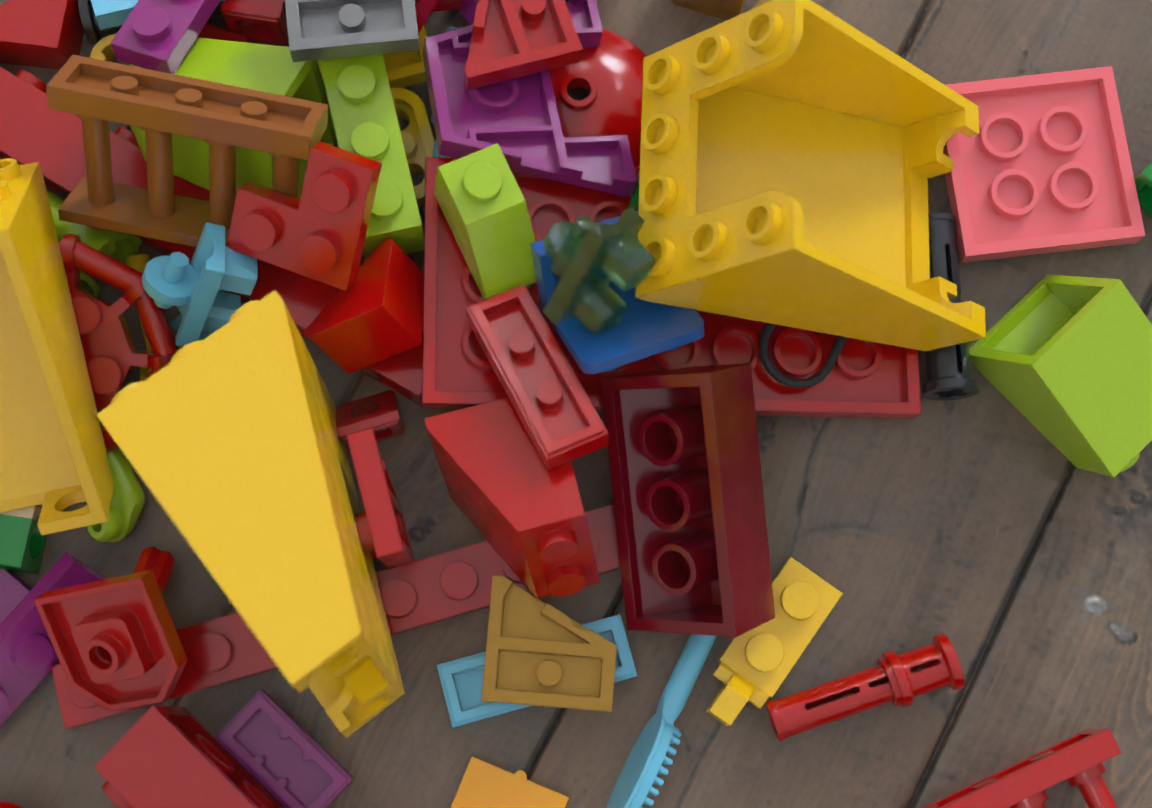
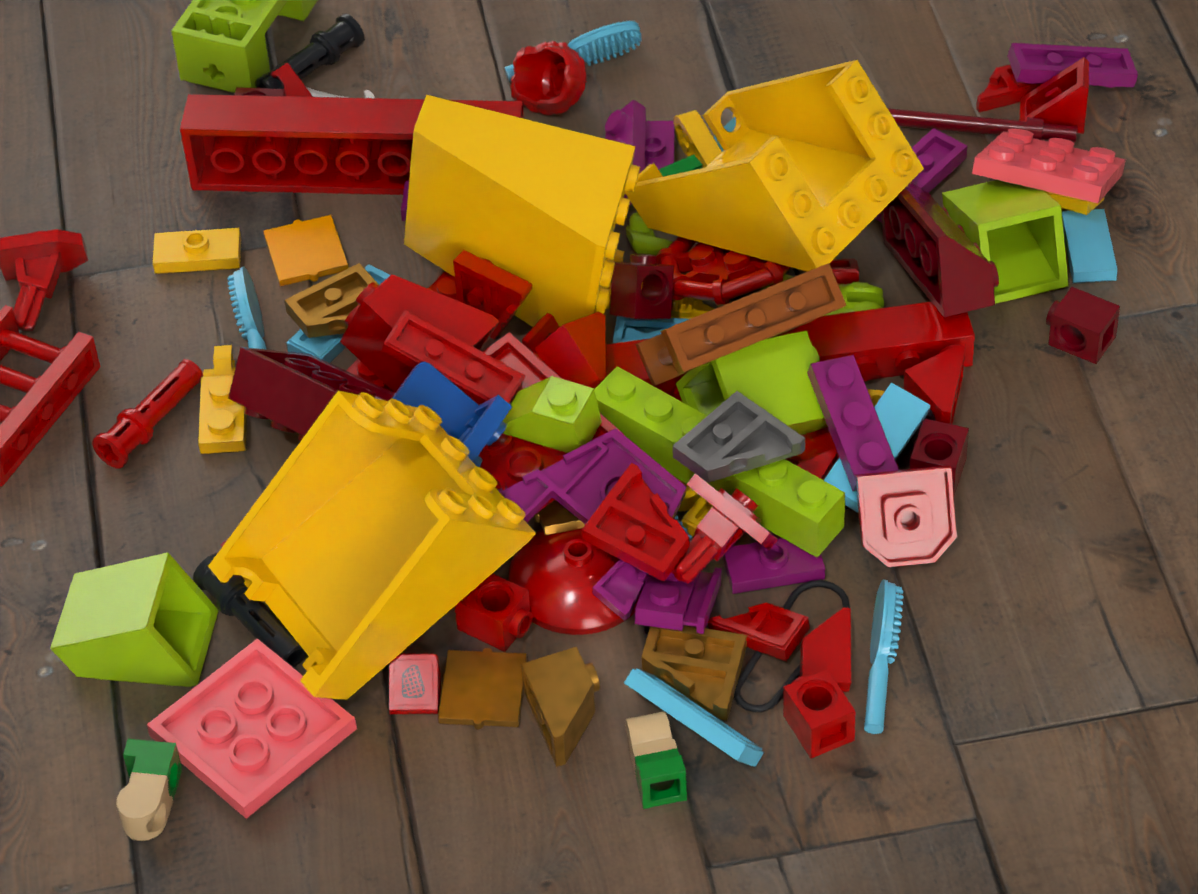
camera: 145 degrees right, 30 degrees down
(196, 285) = (685, 301): medium azure hips -> none
(320, 231) = (632, 338): red plate -> none
(587, 260) = (463, 397): clear green hips -> none

